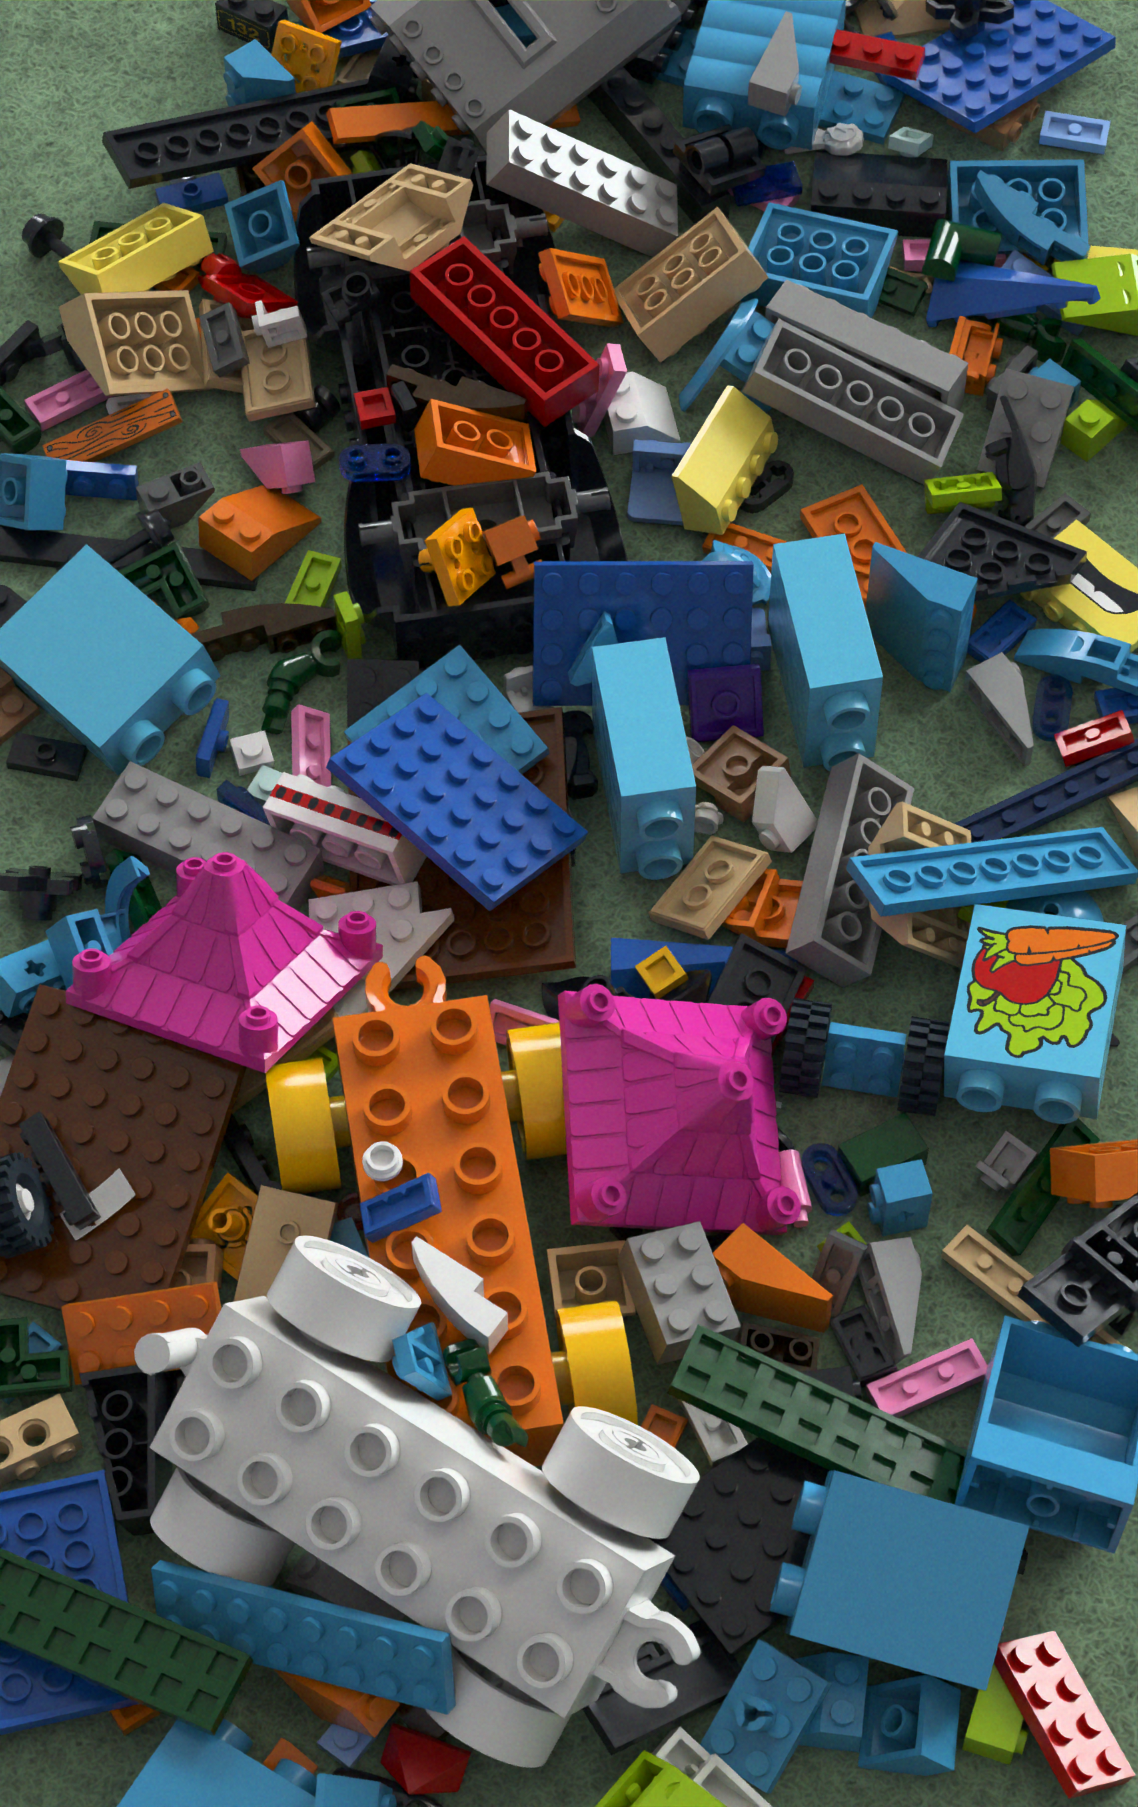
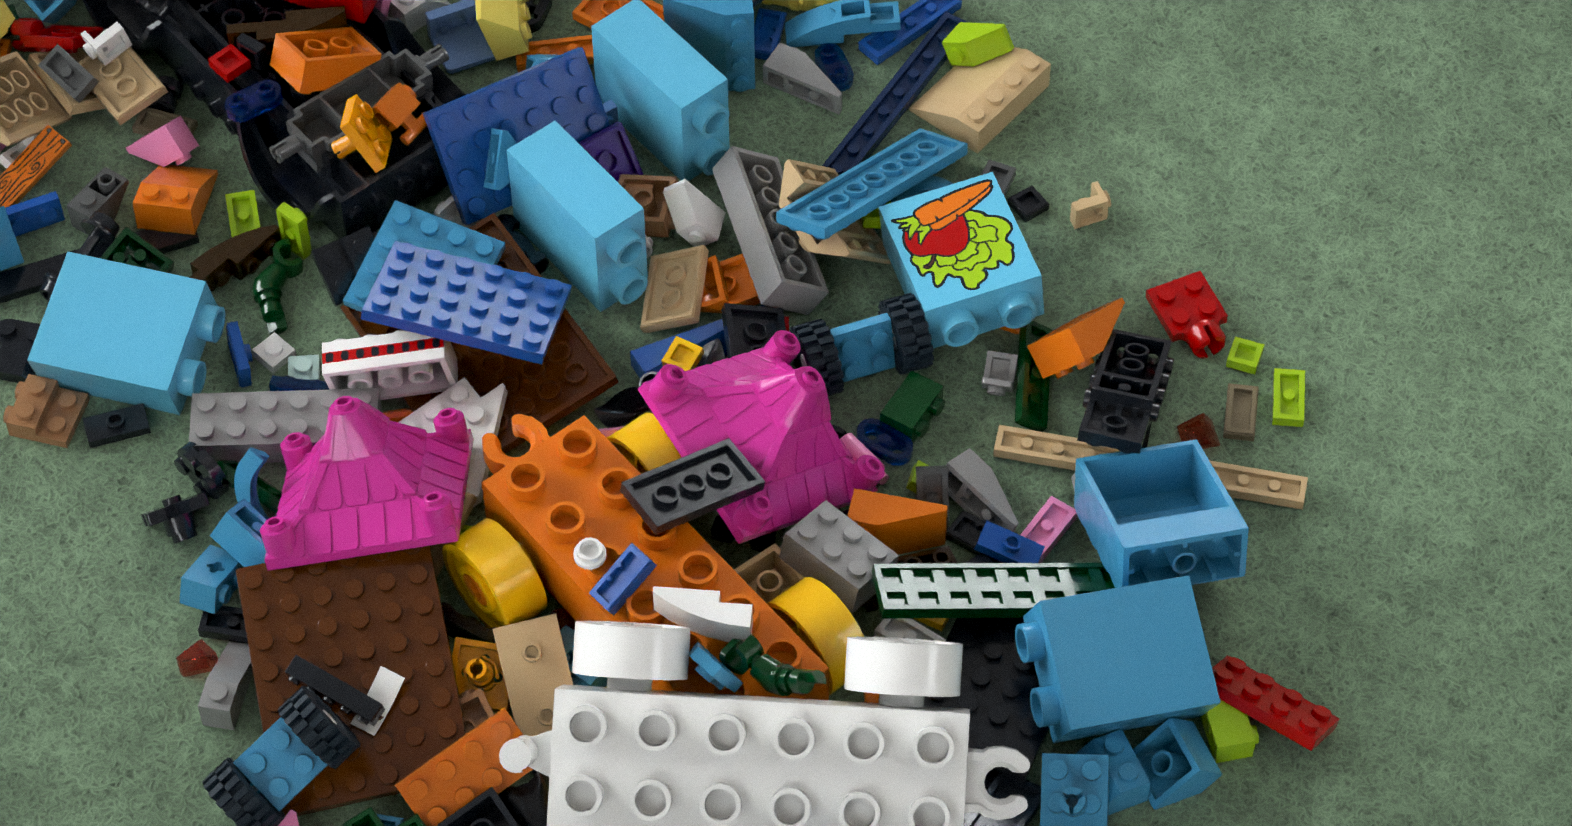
camera: 30 degrees left, 5 degrees down
(311, 744) = (313, 322): bright pink plate -> none
(540, 1138) = (692, 486): none -> black plate
(880, 1376) = (1007, 545): none -> blue plate
(900, 1198) = (946, 426): dark azure brick -> none
(1094, 738) = (878, 72): red plate -> none

